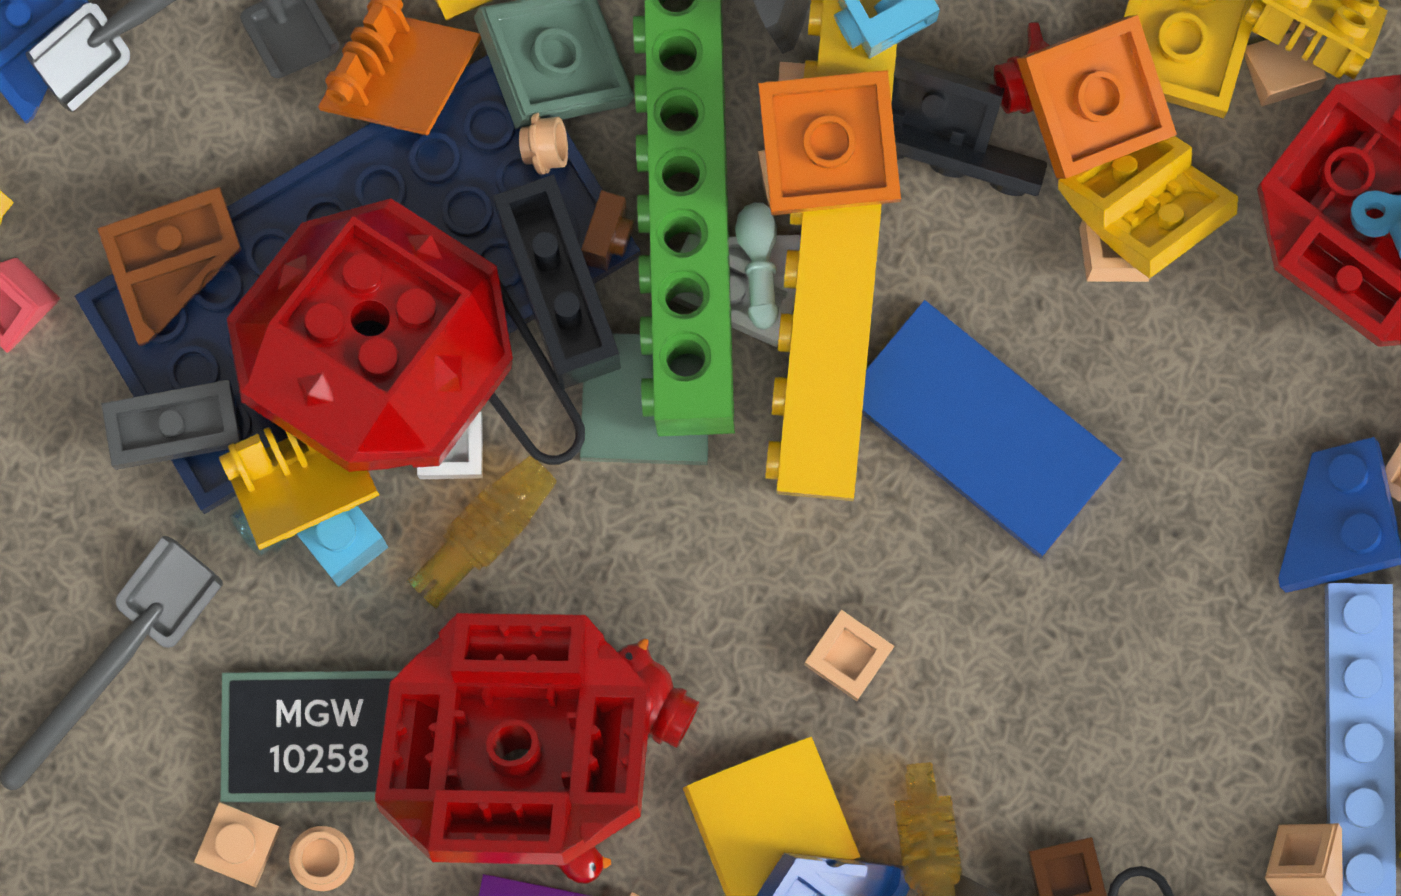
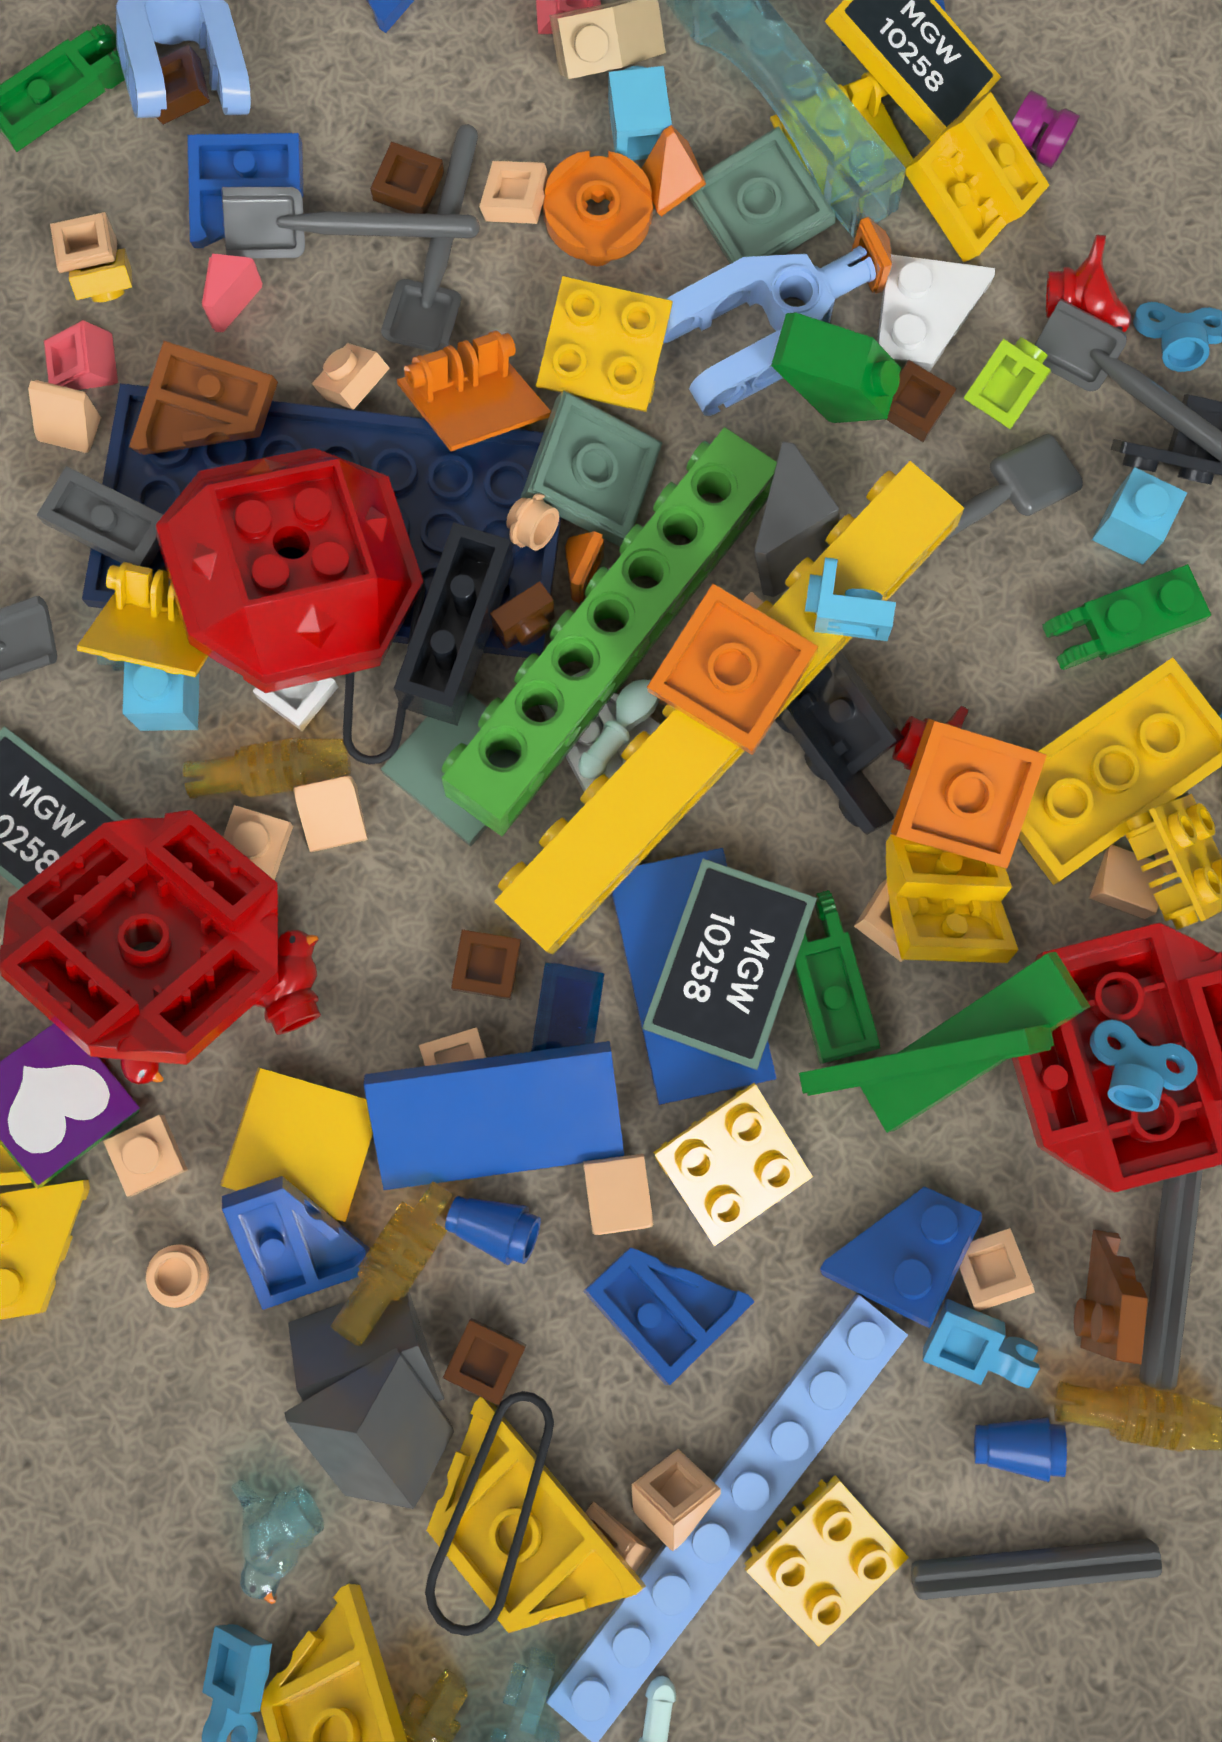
camera: 35 degrees right, 0 degrees up
(44, 365) = (63, 416): none -> light nougat slope
(98, 135) = (229, 288): none -> coral slope
(271, 134) = (350, 375): none -> light nougat plate
(519, 593) = (259, 837): none -> light nougat plate
(568, 528) = (330, 813): none -> light nougat slope
(607, 145) = (583, 559): none -> orange slope
(805, 552) = (486, 964): none -> reddish brown plate
(912, 553) = (567, 1007): none -> clear blue slope
(916, 669) = (494, 1115): none -> tile
(988, 763) = (495, 1227): none -> blue cone
(1010, 392) = (729, 964): none -> black tile
(1067, 655) = (618, 1194): none -> light nougat slope
(1103, 344) = (834, 990): none -> green hinge
(1142, 557) = (733, 1164): none -> hinge
(1180, 721) = (664, 1310): none -> blue wing
(1235, 345) = (928, 1060): none -> green tile
(1260, 303) = (1028, 999): none -> green tile

